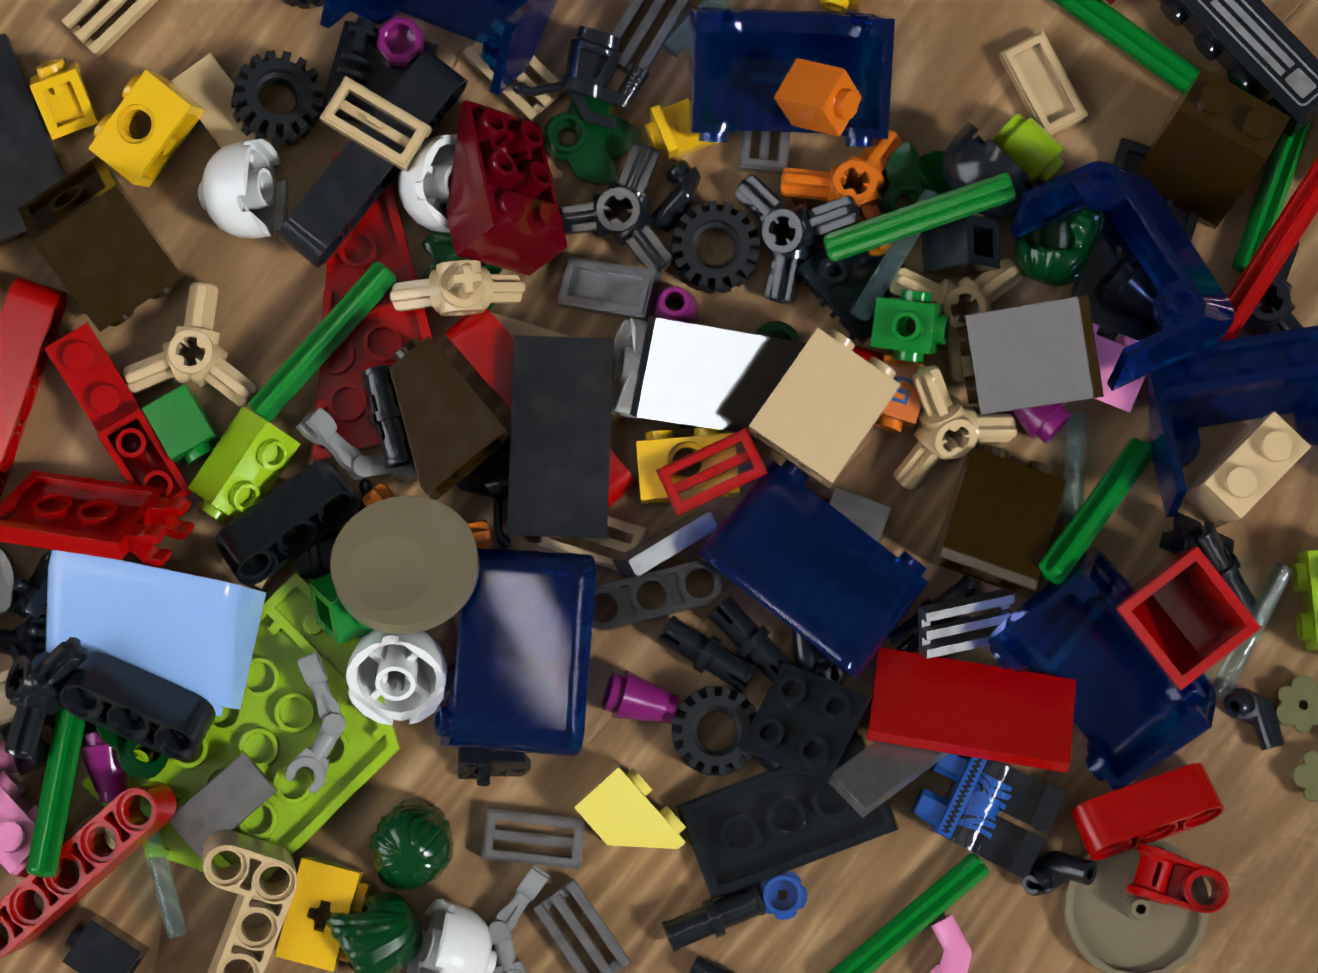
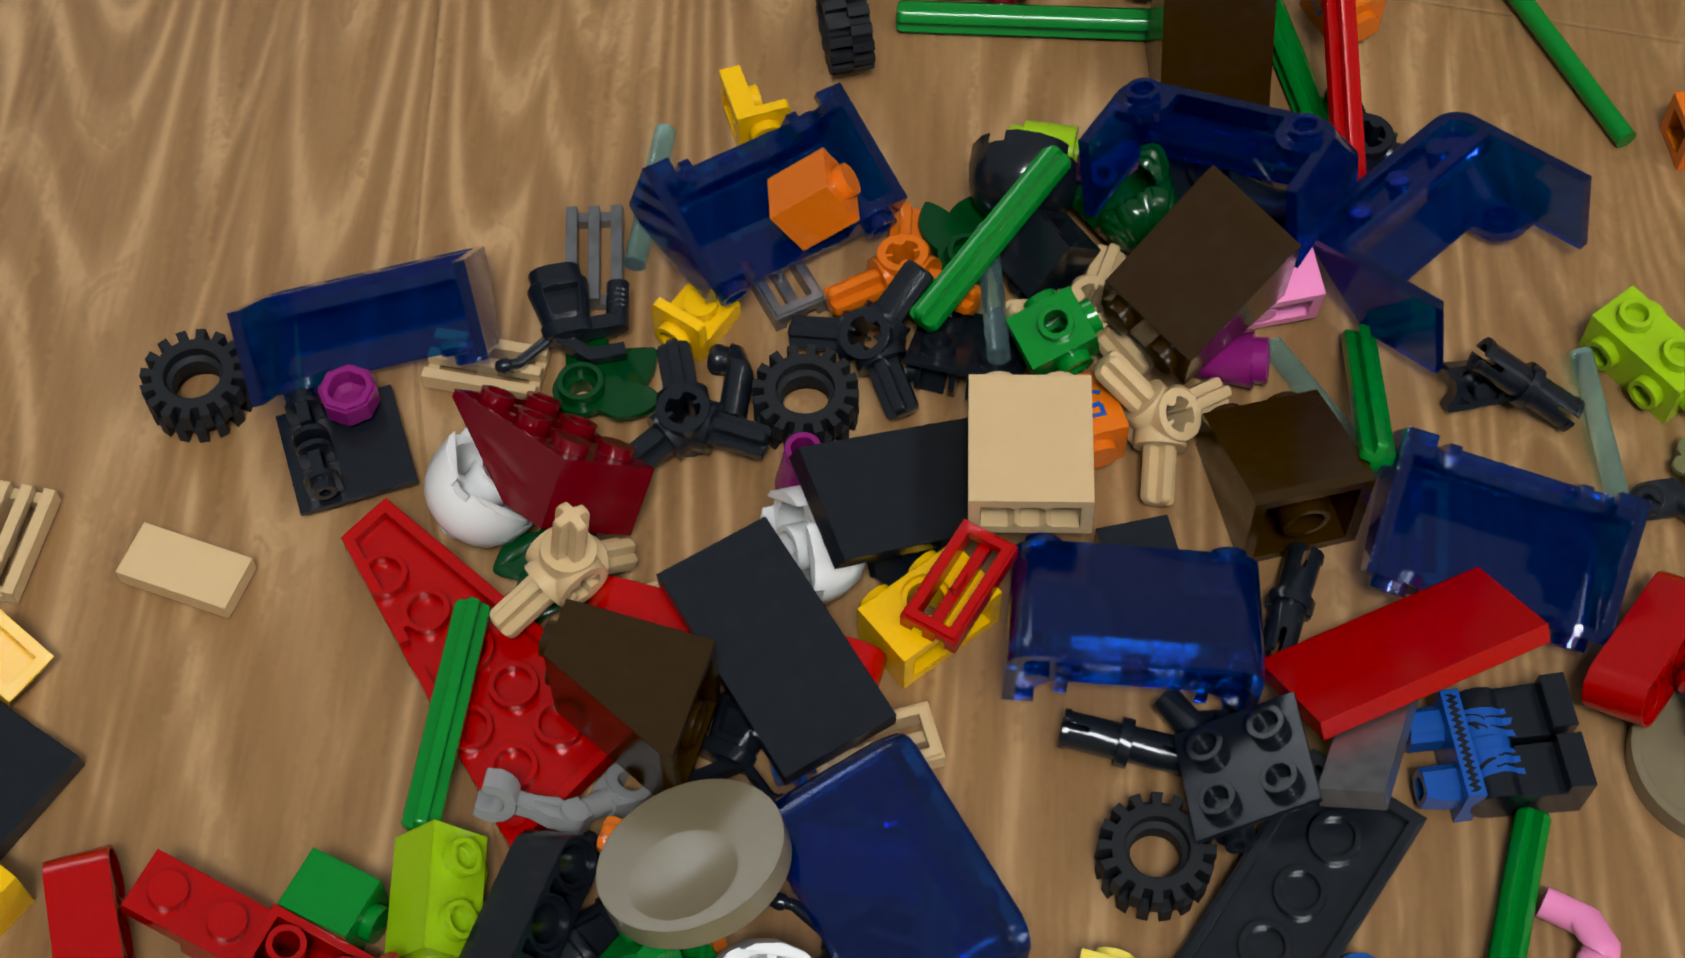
camera: 30 degrees left, 25 degrees down
(99, 244) = (128, 765): dark brown slope -> none
(171, 117) = (129, 654): yellow brick -> none
(211, 369) = (300, 798): tan bush -> none
(243, 190) = (260, 623): white cylinder -> none
(285, 73) = (252, 541): black tyre -> none
(361, 176) = (387, 510): black beam -> none
(387, 417) = (571, 743): black pin -> none
(411, 145) = (369, 466): tan tile -> none
(609, 288) = (722, 495): flat silver tile -> none
(638, 699) = (1048, 876): magenta cone -> none
(665, 543) = (961, 695): flat silver tile -> none
(673, 583) = (1001, 737): black beam -> none
(707, 654) = (1085, 784): black pin -> none
(932, 647) = (1295, 609): flat silver tile -> none
(1043, 84) = (1011, 97): tan tile -> none
(1055, 869) = (1615, 767): black arm -> none
(1186, 616) = (1542, 410): red slope -> none
(1246, 470) = (1478, 268): tan brick -> none

